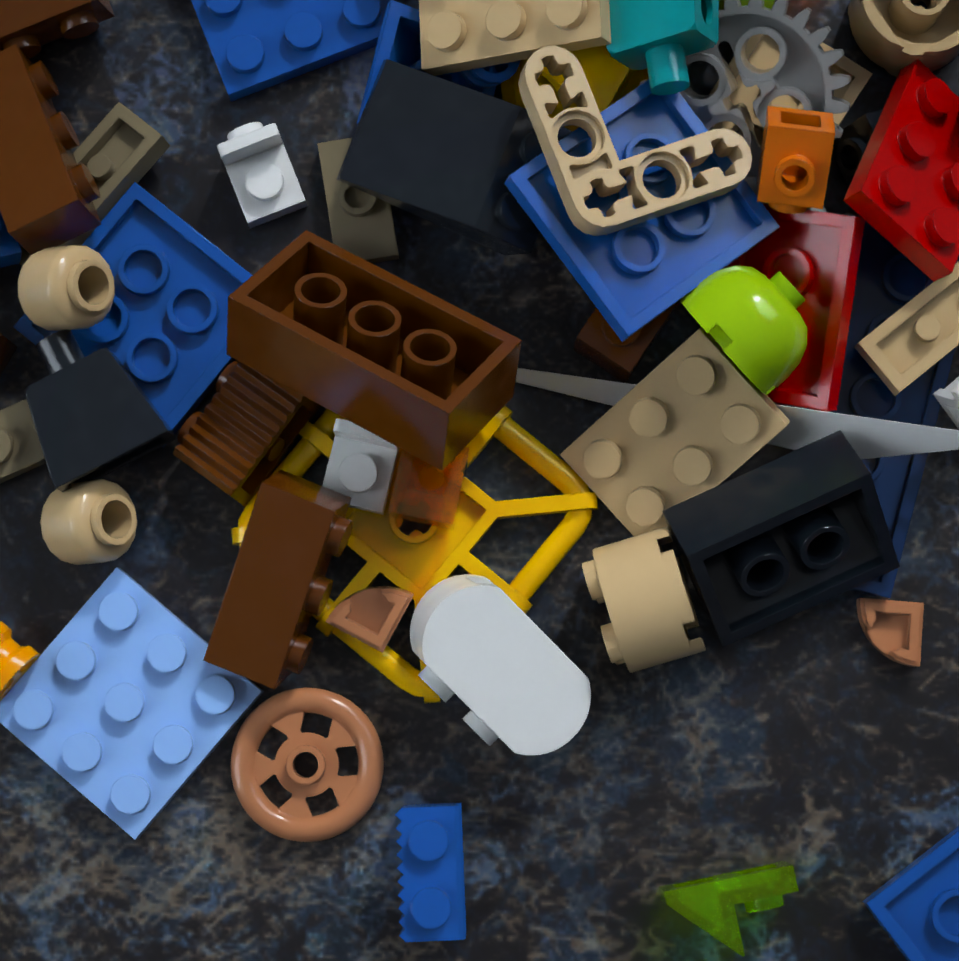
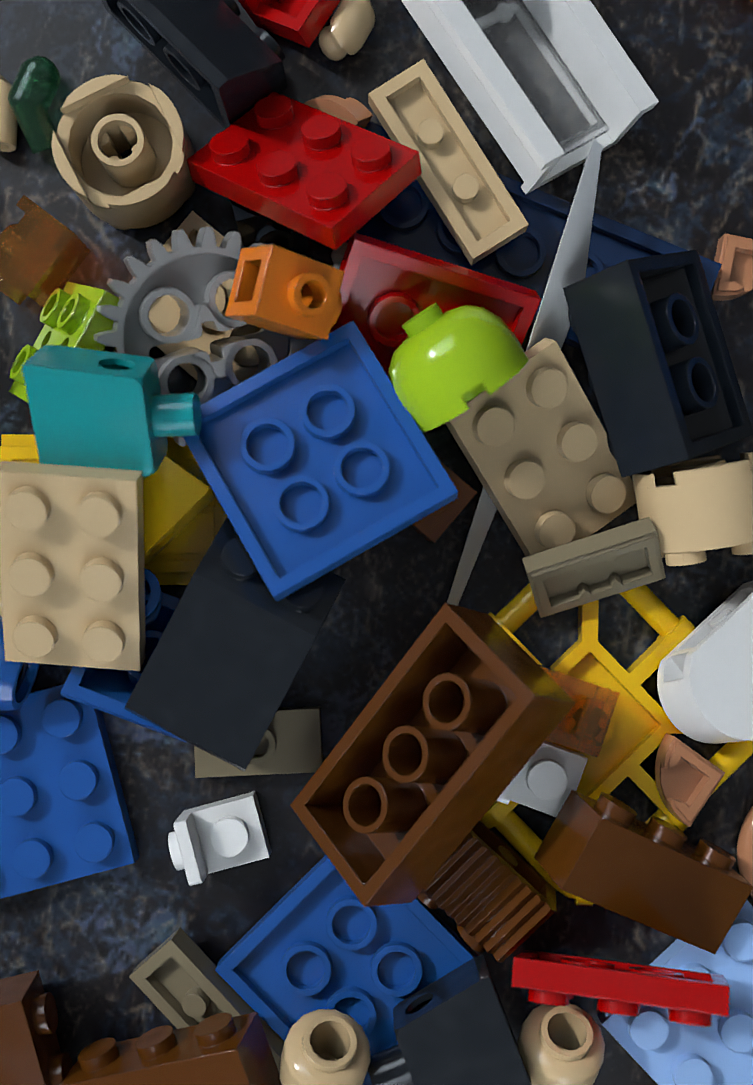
camera: 85 degrees left, 5 degrees up
(169, 561) = (622, 986): none -> red plate
(570, 495) = (595, 567): none -> dark tan plate
(602, 167) = (274, 497): tan beam -> none

